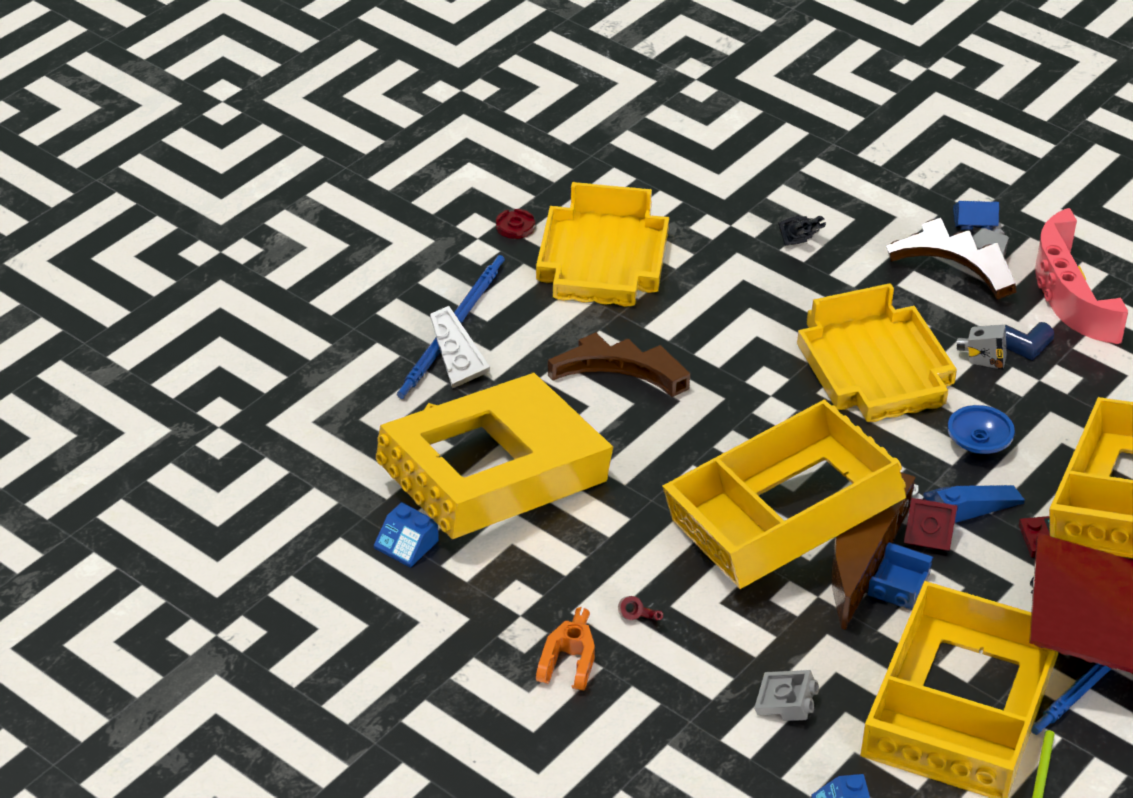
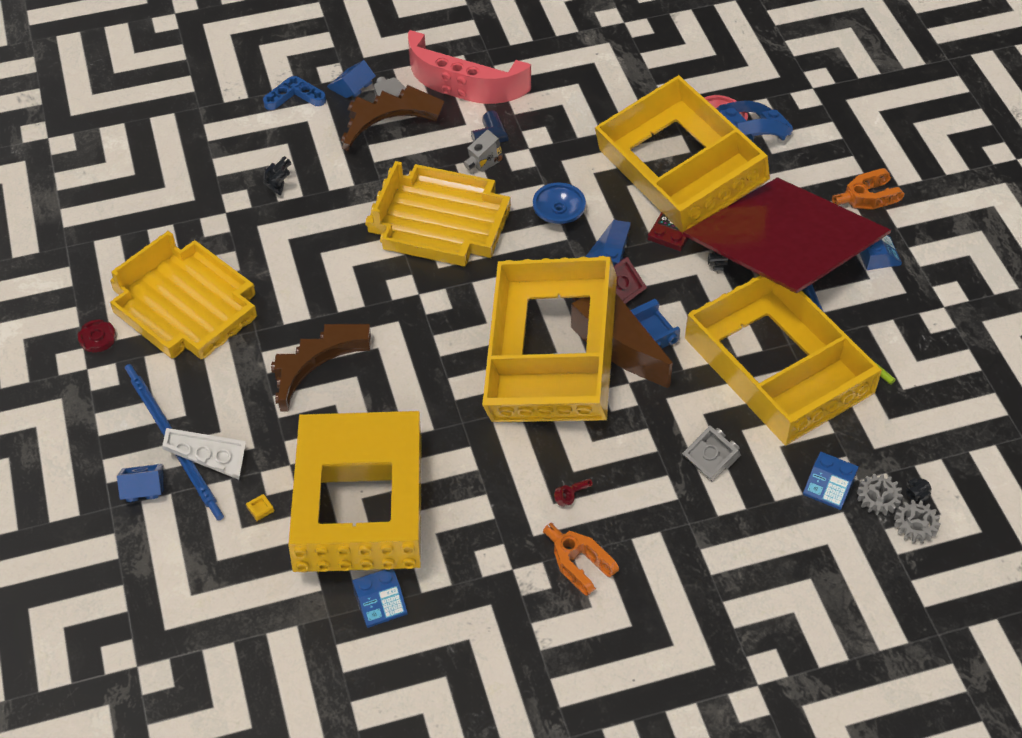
camera: 55 degrees left, 10 degrees up
(390, 327) = (140, 482): none -> blue slope
(921, 183) = (293, 86): none -> blue beam

